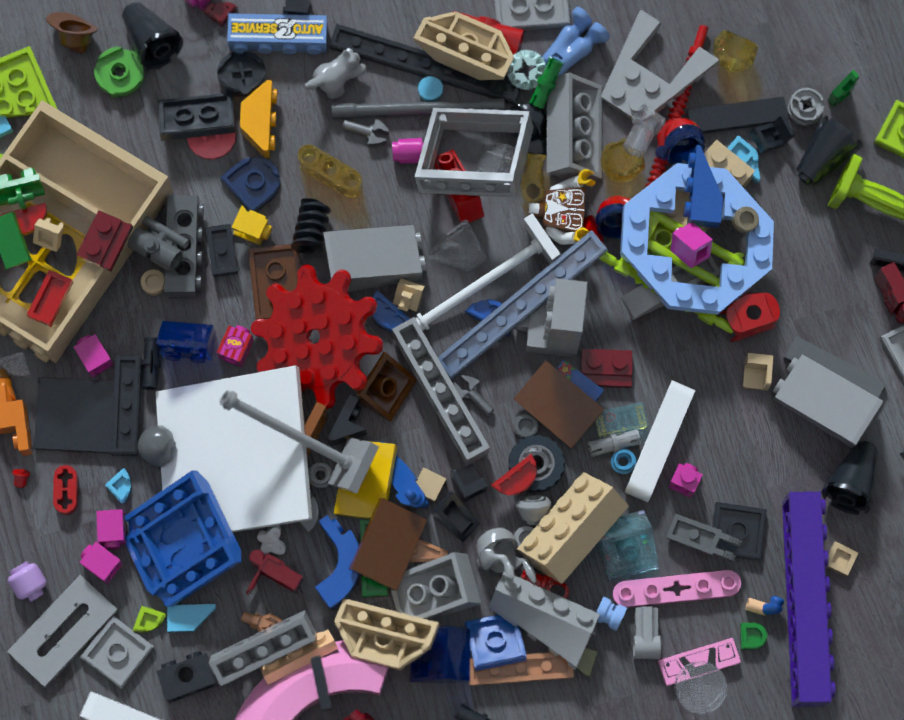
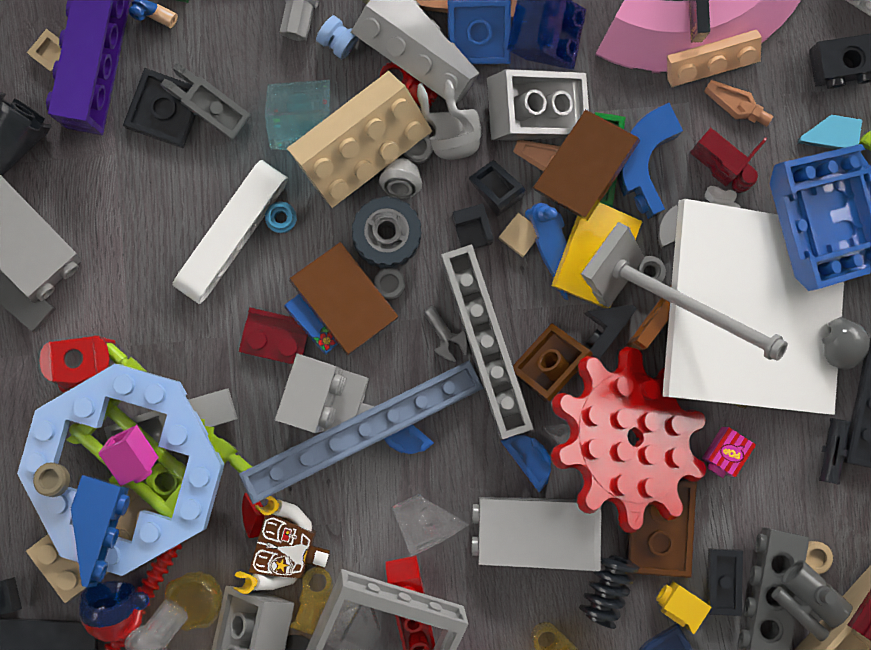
camera: 170 degrees left, 10 degrees up
(186, 341) = (792, 471): clear blue slope -> none
(262, 648) = (756, 70): light grey brick -> none
(383, 634) = (611, 55): tan wedge -> none
(408, 295) = (502, 475): tan tile -> none
(518, 478) = (413, 213): red tile -> none
(540, 244) = (325, 506): white tile -> none
(609, 216) = (224, 529): clear blue piece -> none
(614, 443) = (286, 241): light grey pin -> none
(621, 419) = (269, 268): clear light blue tile -> none
(685, 479) = (210, 177): dark pink brick -> none
(702, 587) = (221, 53): bright pink piece -> none
(747, 154) = (34, 581): medium azure tile -> none
(757, 371) = (90, 293): tan panel -> none

